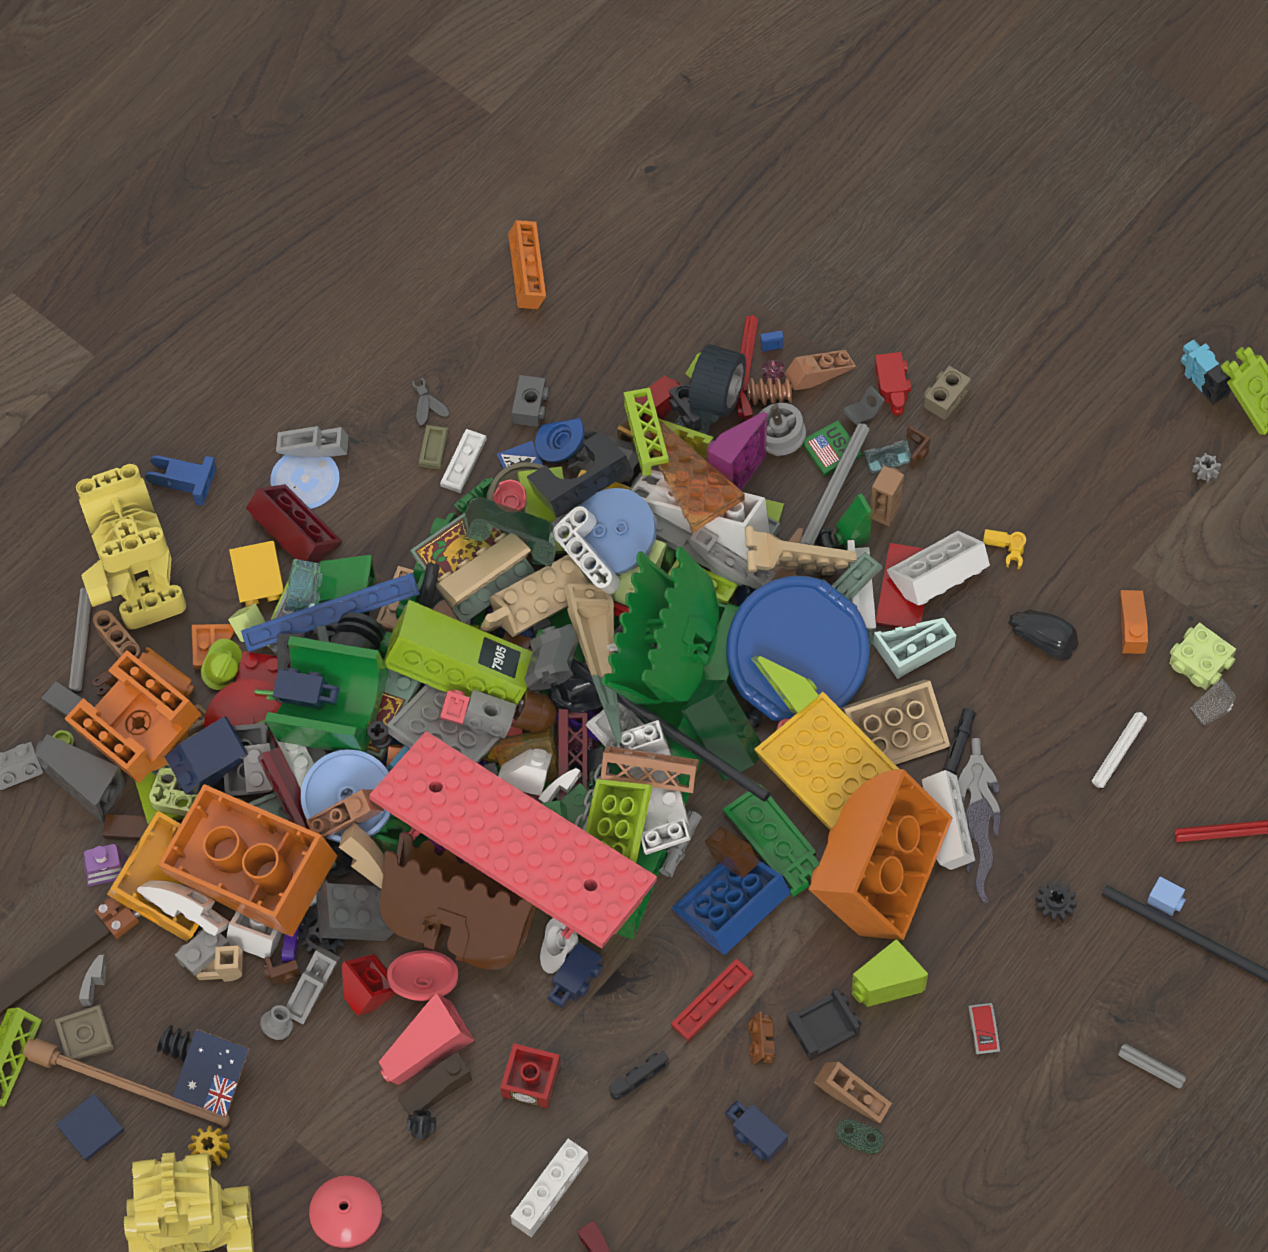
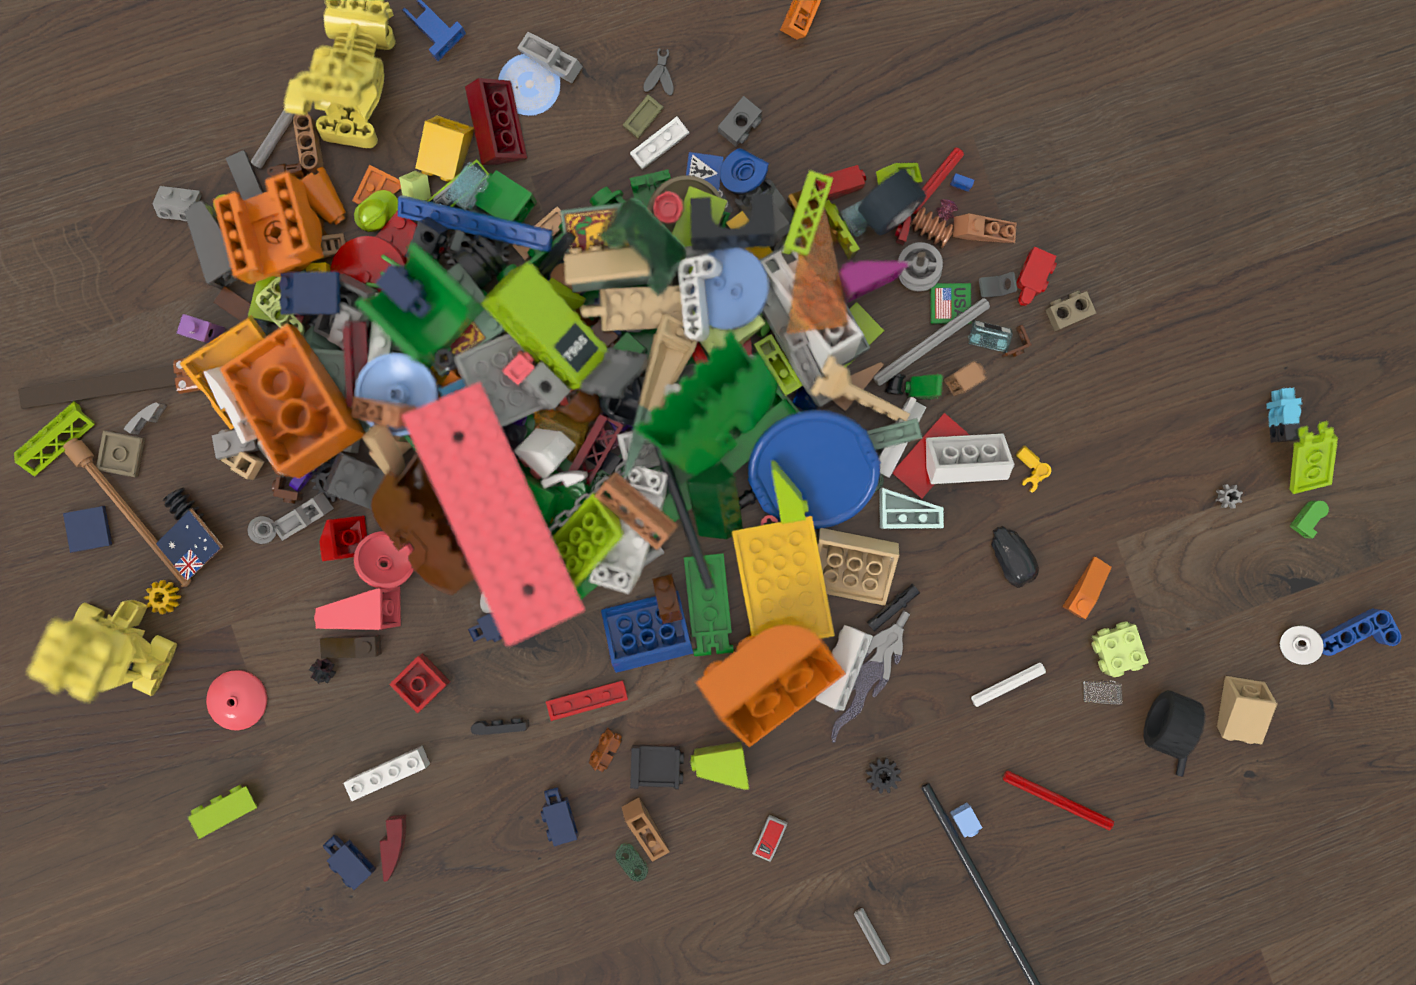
camera: 30 degrees right, 25 degrees up
(688, 415) = (852, 217): black plate -> none

